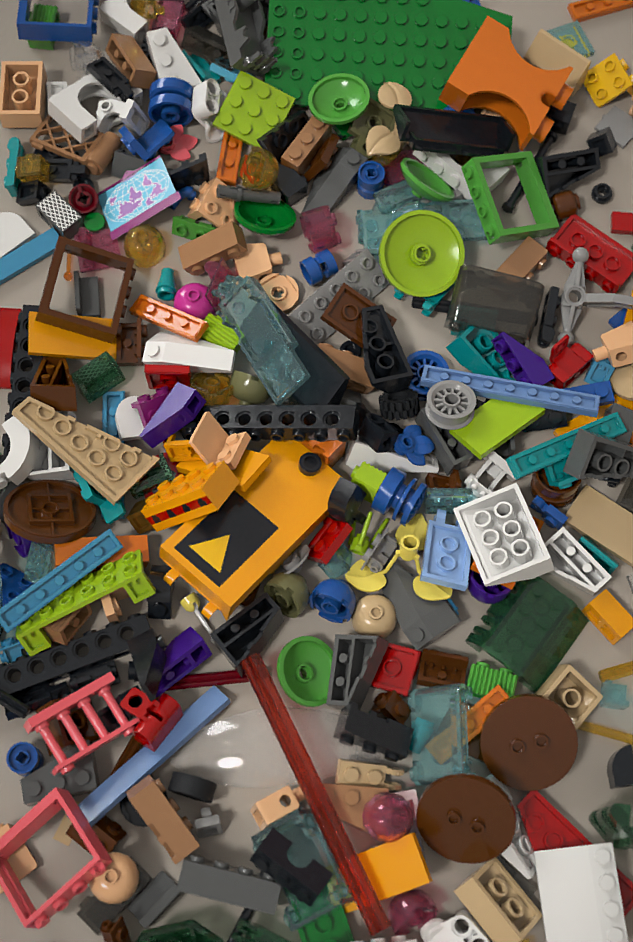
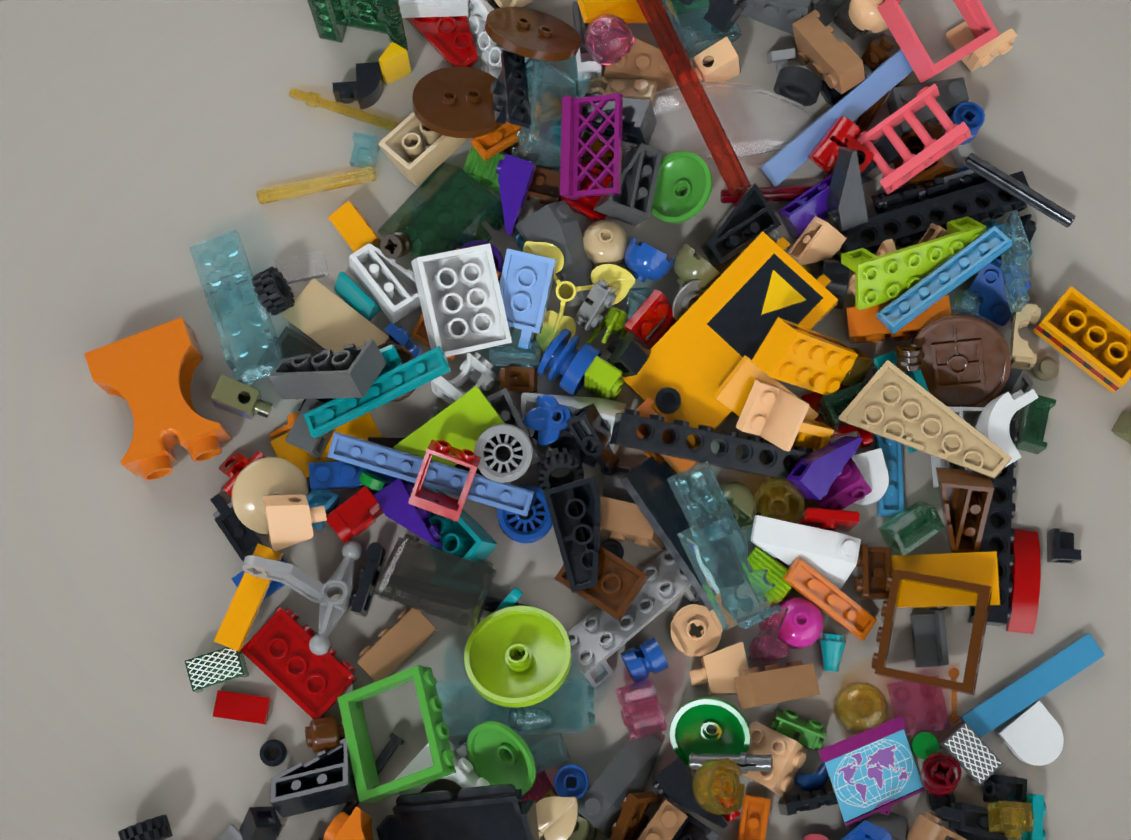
camera: 175 degrees left, 5 degrees up
(90, 512) = (909, 357): none -> dark brown wheel
(177, 619) = (816, 243): none -> light nougat slope
(413, 693) = (571, 146): none -> magenta fence
(468, 653) = (514, 183): none -> dark purple slope
(480, 736) = (511, 91): none -> black bracket
(490, 363) = (437, 502): none -> red window
(559, 381) = (371, 480): none -> green tile
(570, 589) = (400, 241): none -> dark brown wheel
(601, 787) = (394, 63): none -> yellow slope

